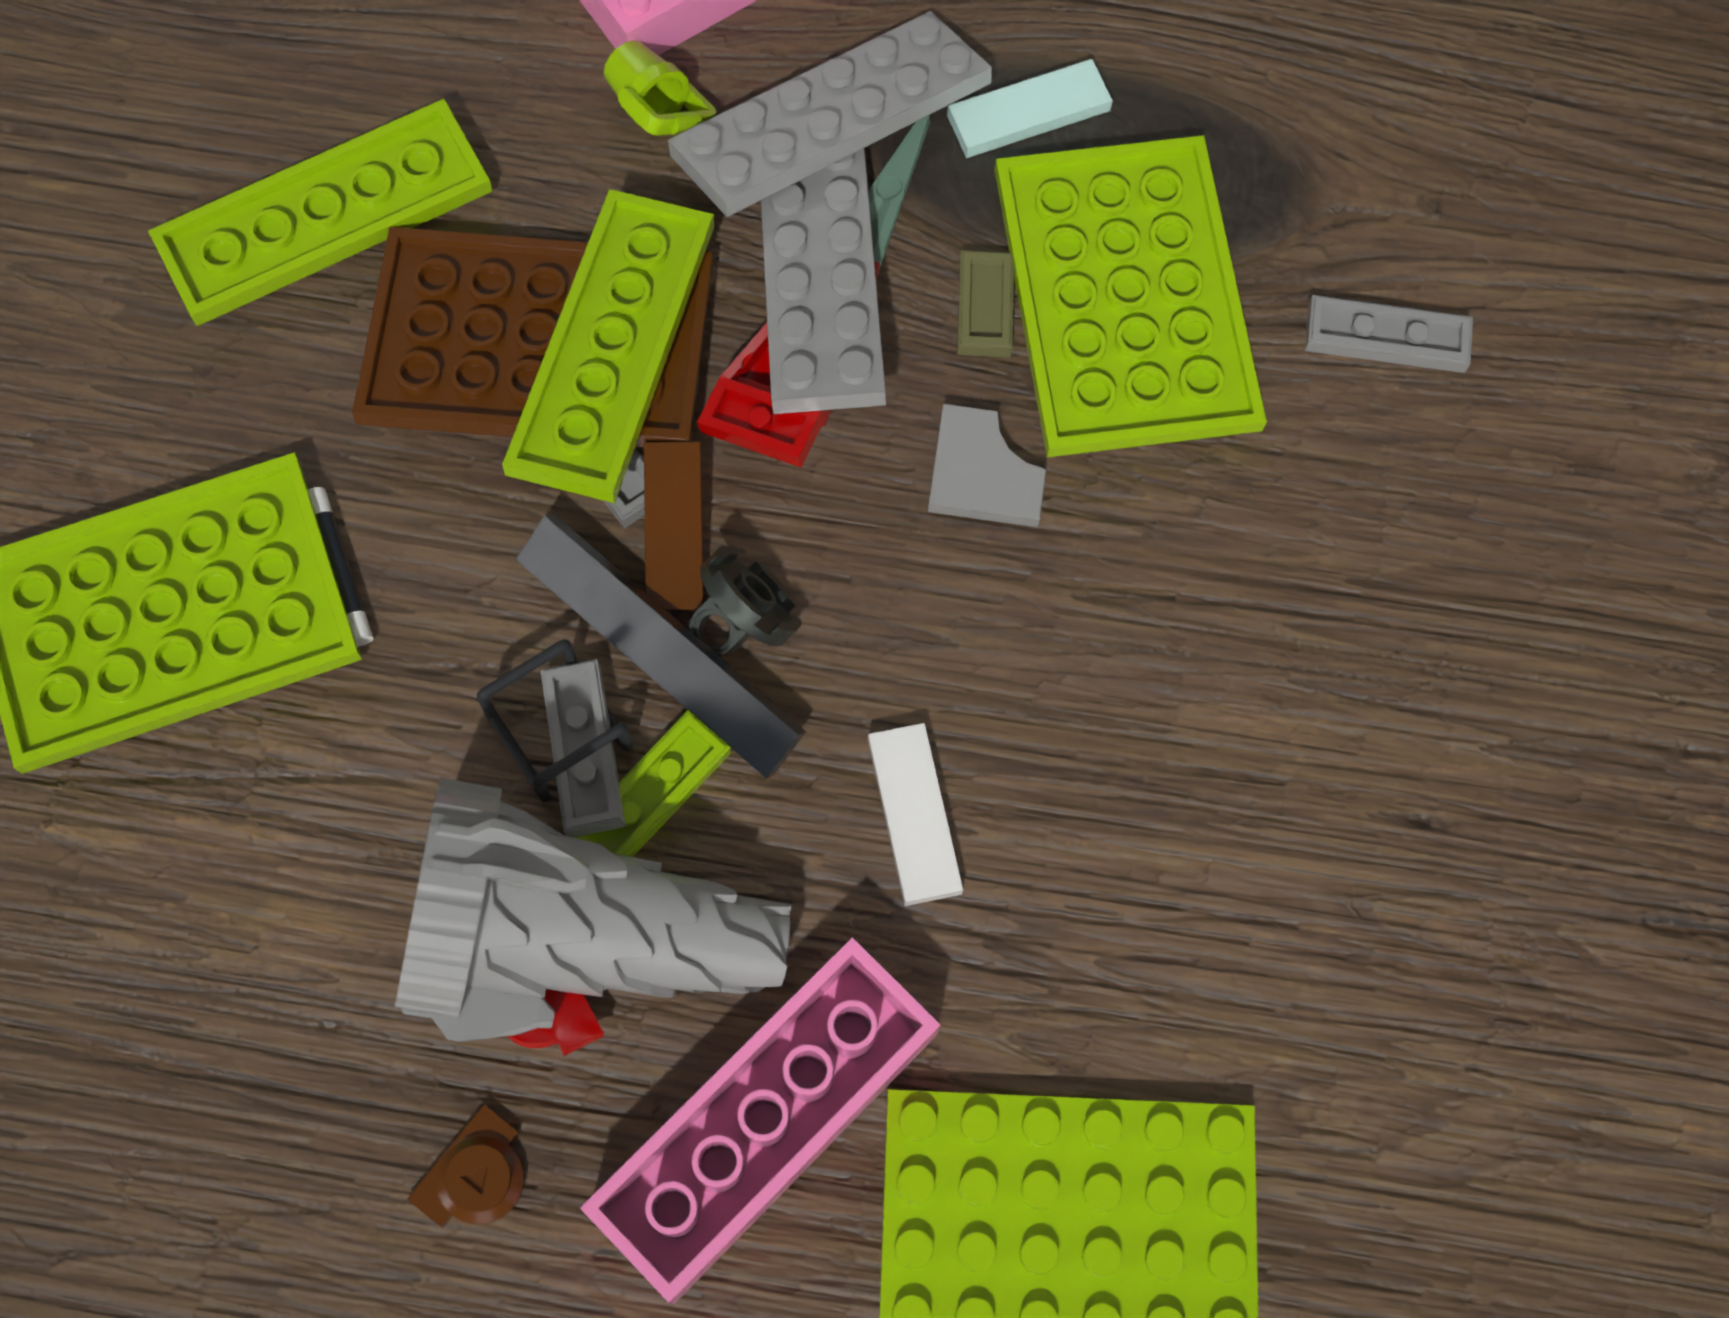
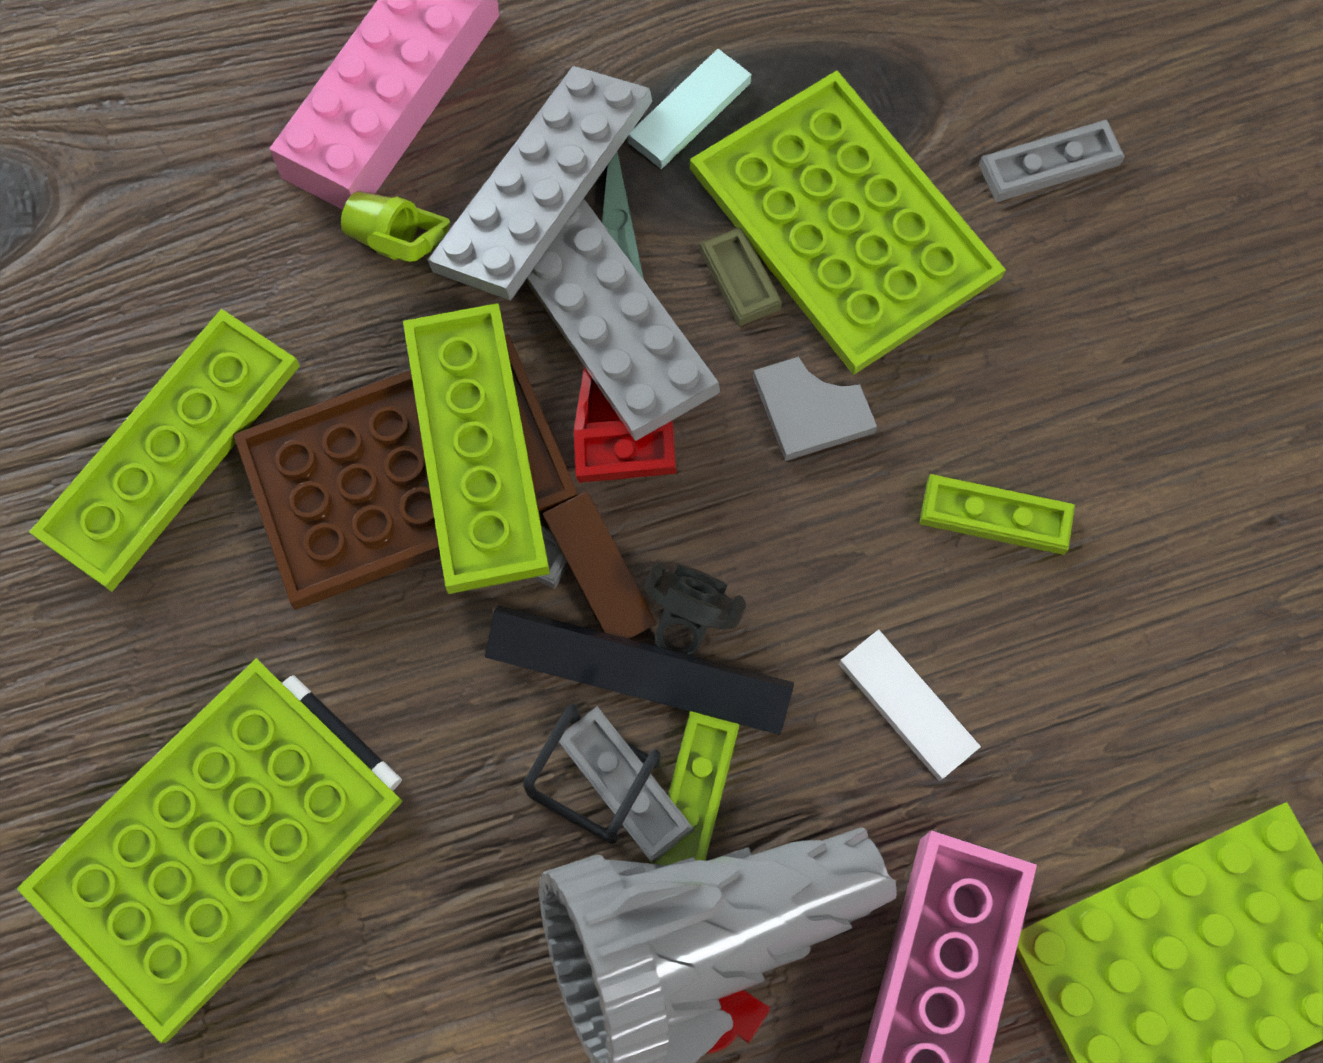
camera: 25 degrees left, 0 degrees up
(1117, 669) = (997, 514): none -> lime tile

